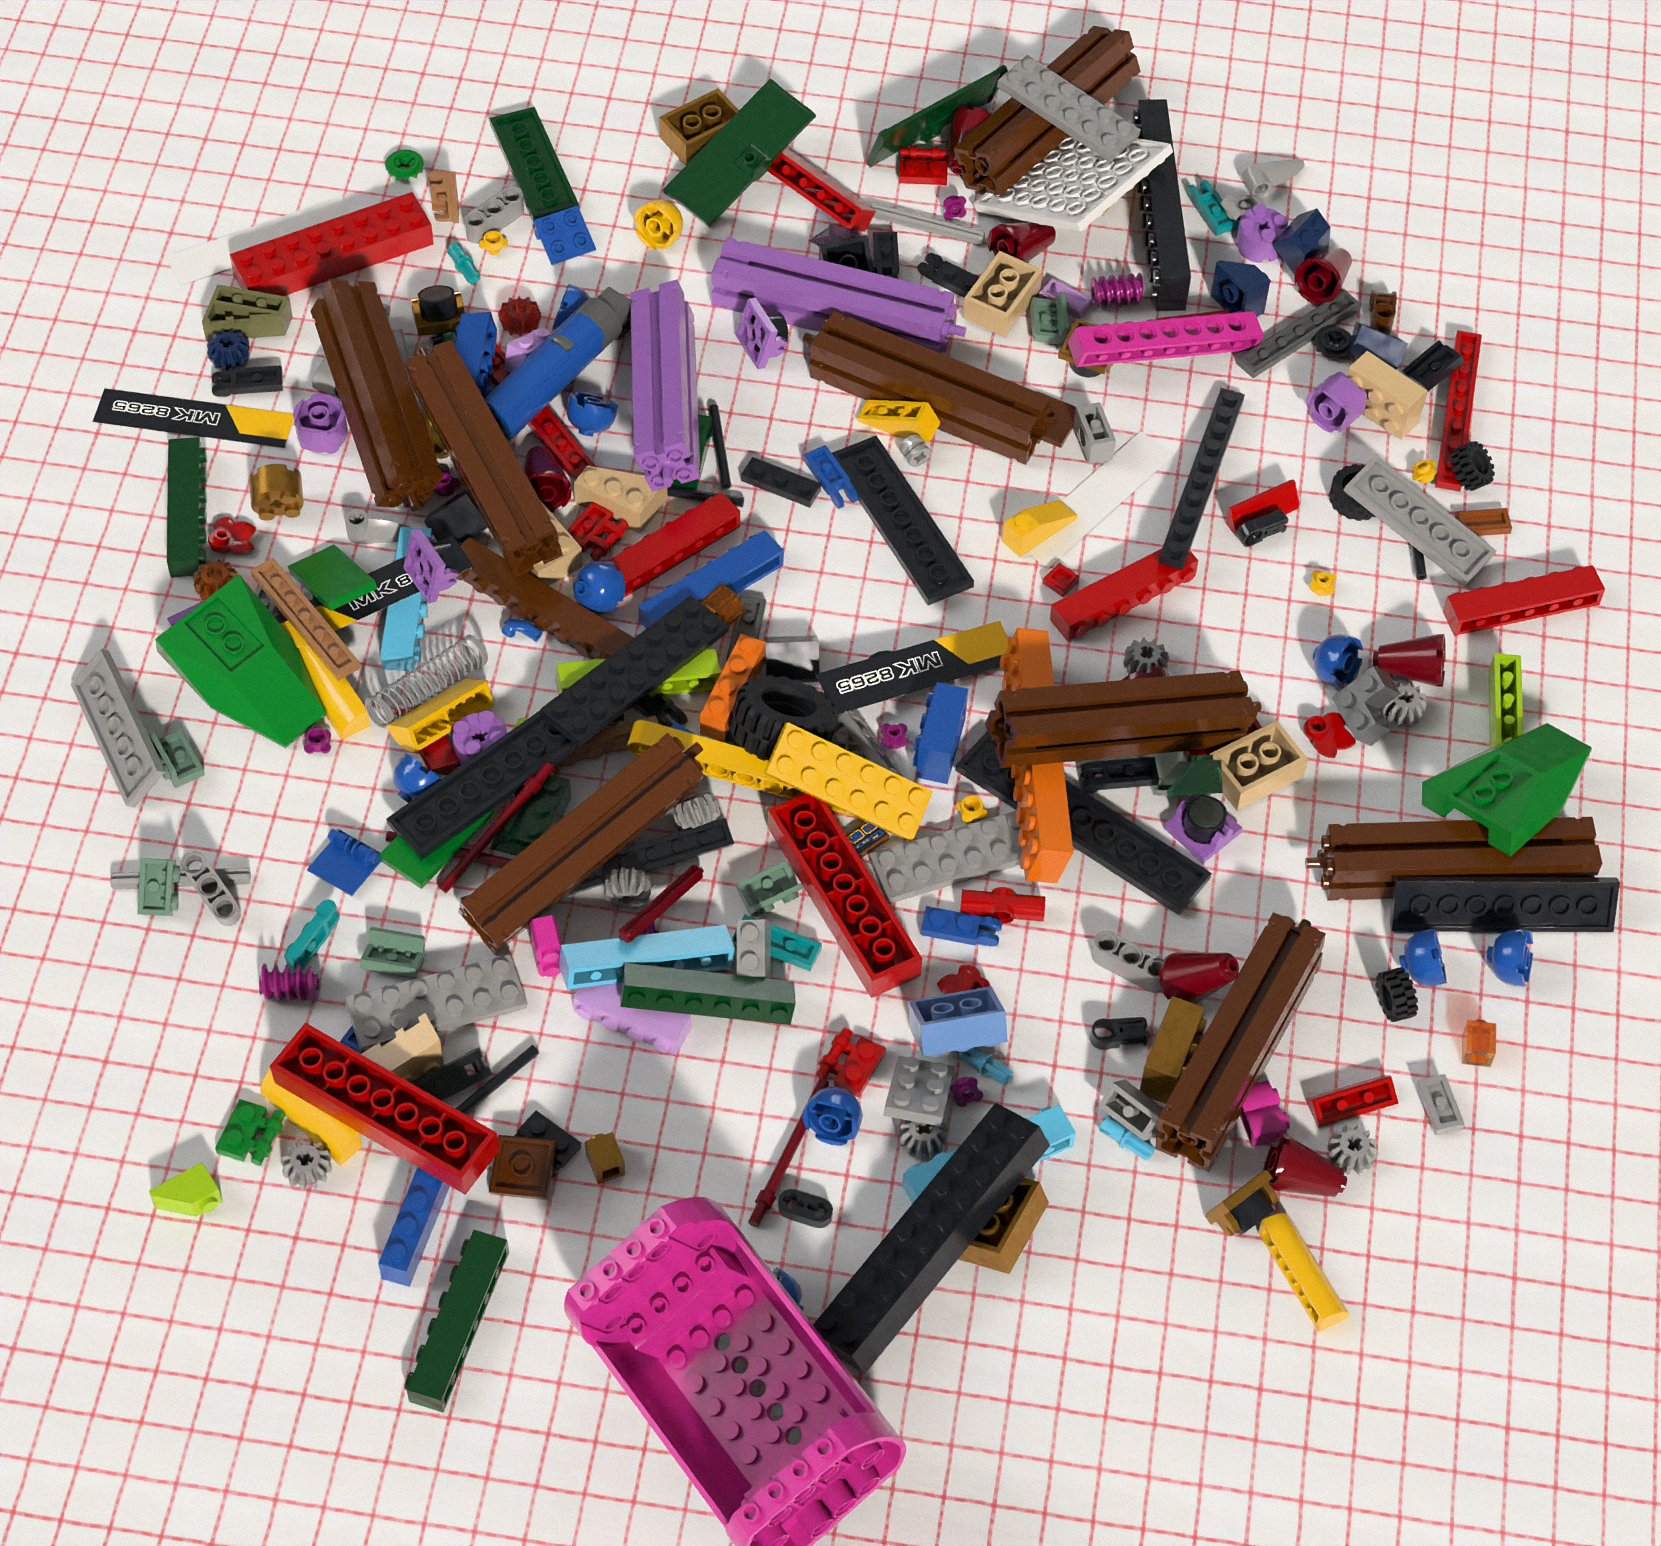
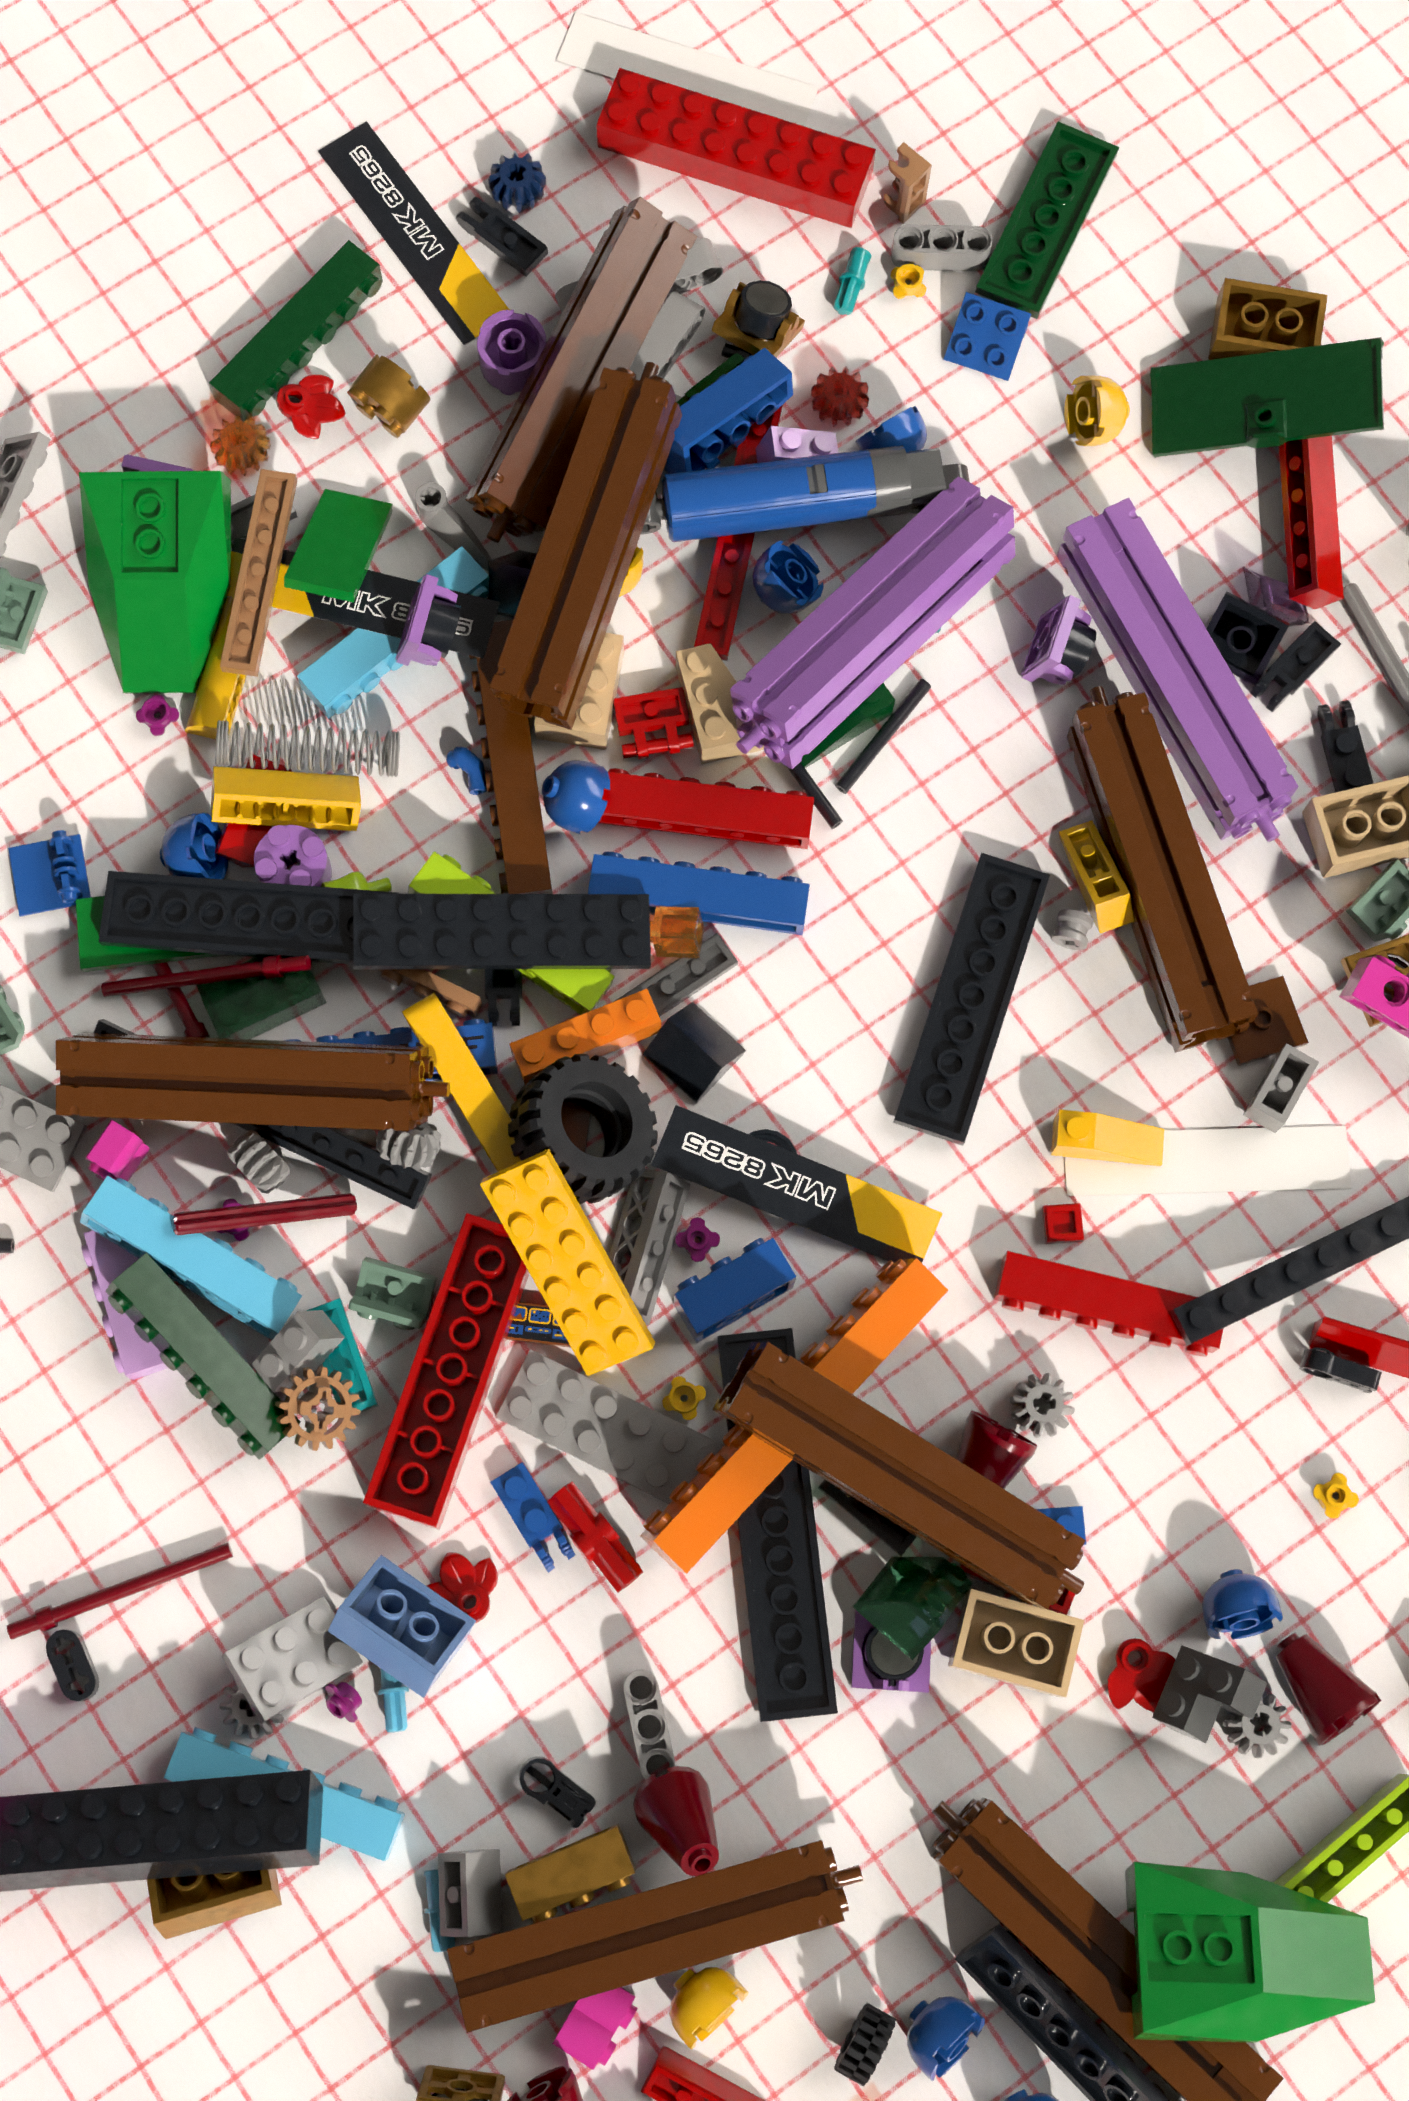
camera: 45 degrees right, 20 degrees up
(246, 312) = (569, 153): olive wedge -> none
(405, 158) = (930, 103): green gear -> none
(547, 478) = (658, 616): dark red cone -> none
(781, 482) = (900, 836): black plate -> none
(796, 963) = (317, 1423): none -> medium nougat gear
(830, 475) = (956, 874): blue hinge -> none
(833, 1115) = (193, 1600): blue cylinder -> none
(859, 1066) = (278, 1567): red plate -> none
(1302, 1048) = (703, 2002): none -> yellow cylinder

